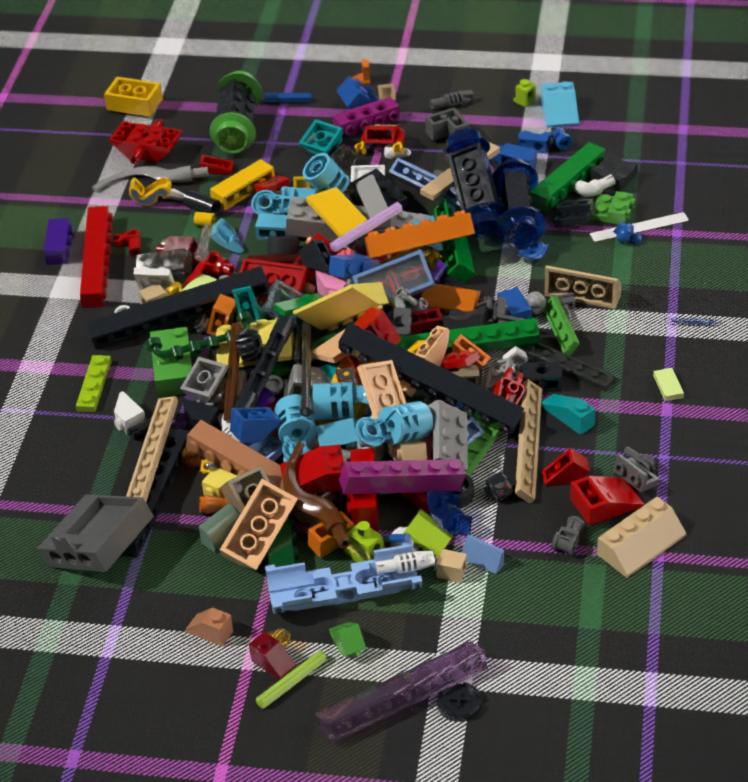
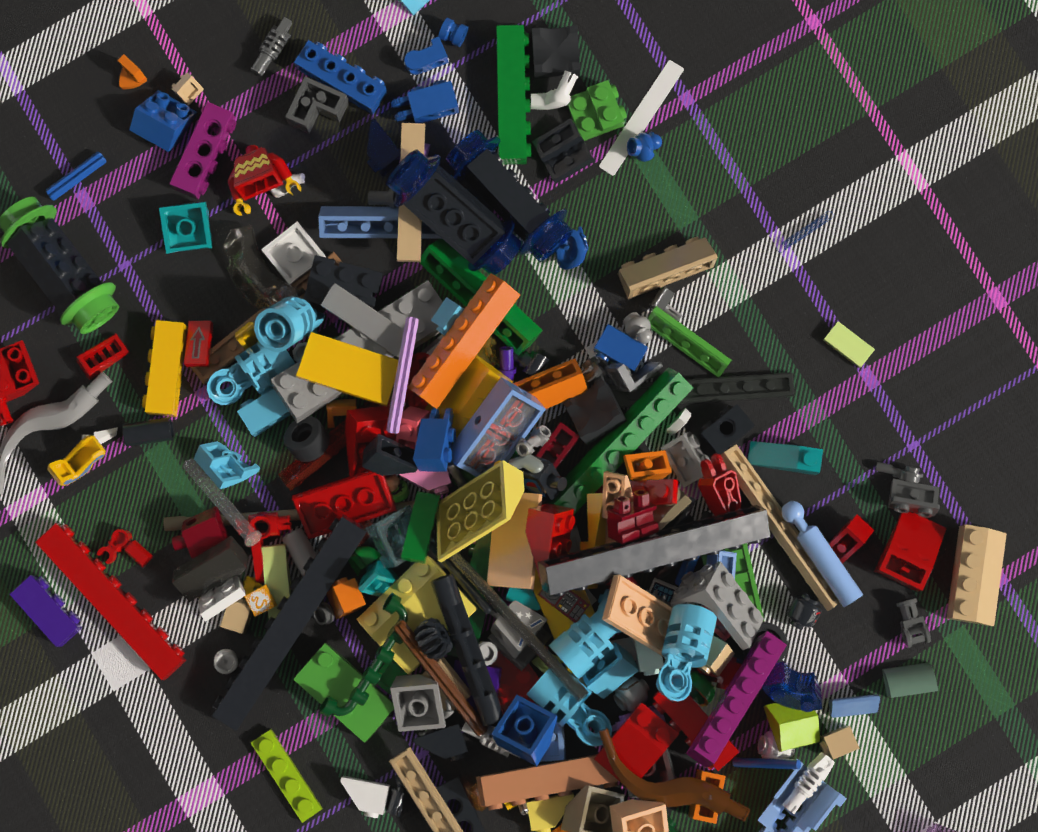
camera: 40 degrees left, 40 degrees up
(173, 288) = (260, 600): none -> tile
(202, 218) = (175, 455): yellow piece -> none
(363, 542) = (747, 784): lime torso -> none
(426, 345) = (631, 520): none -> dark red hips
(477, 120) = (337, 74): none -> blue brick
(534, 566) = (909, 680): none -> sand green brick
(540, 464) = (822, 555): none -> light blue piece

